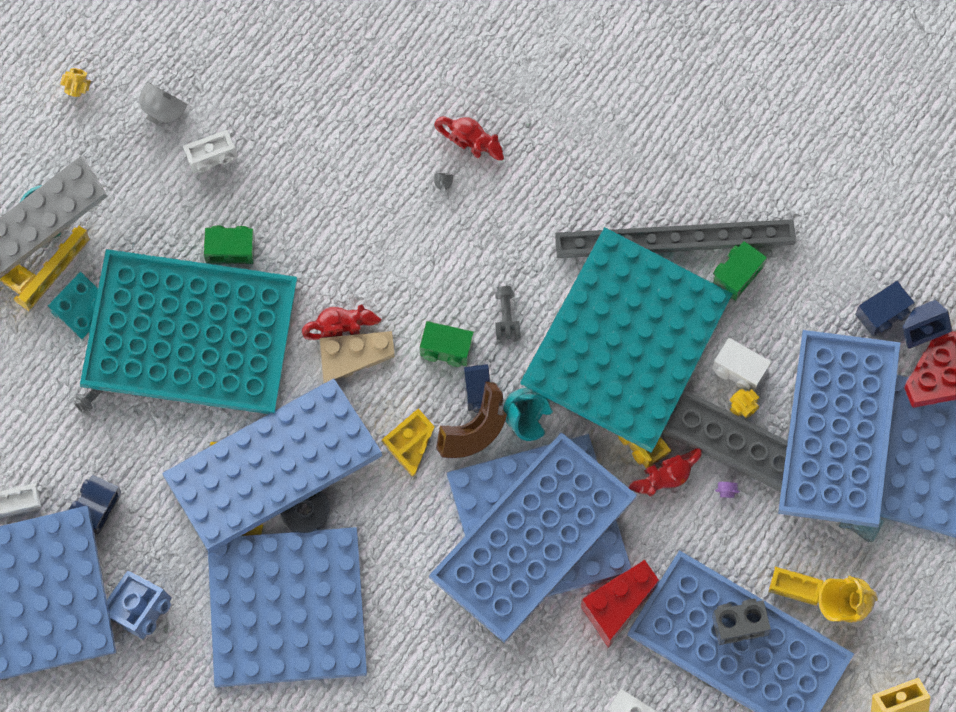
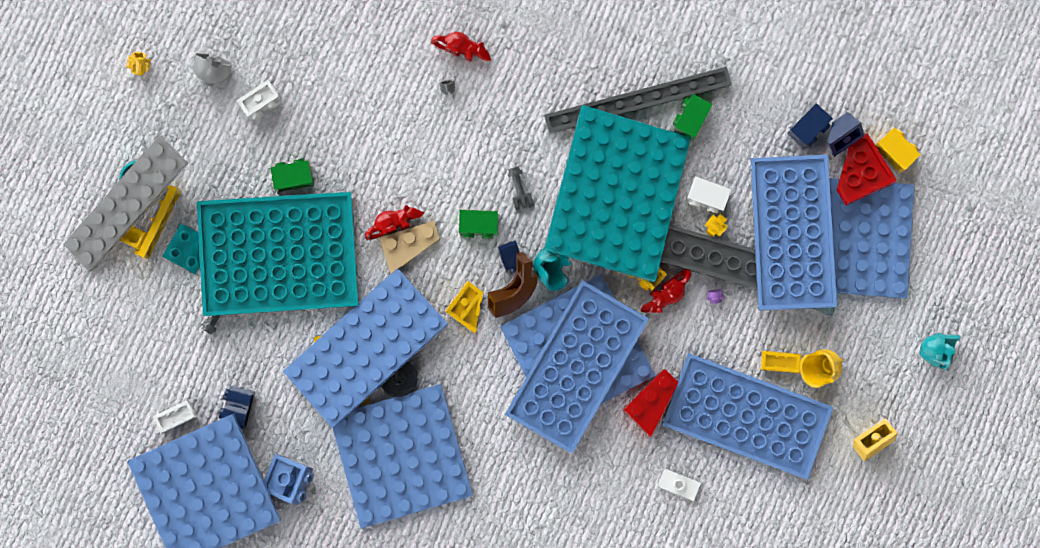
camera: 15 degrees left, 15 degrees up
(743, 627) = (747, 405): dark grey brick -> none

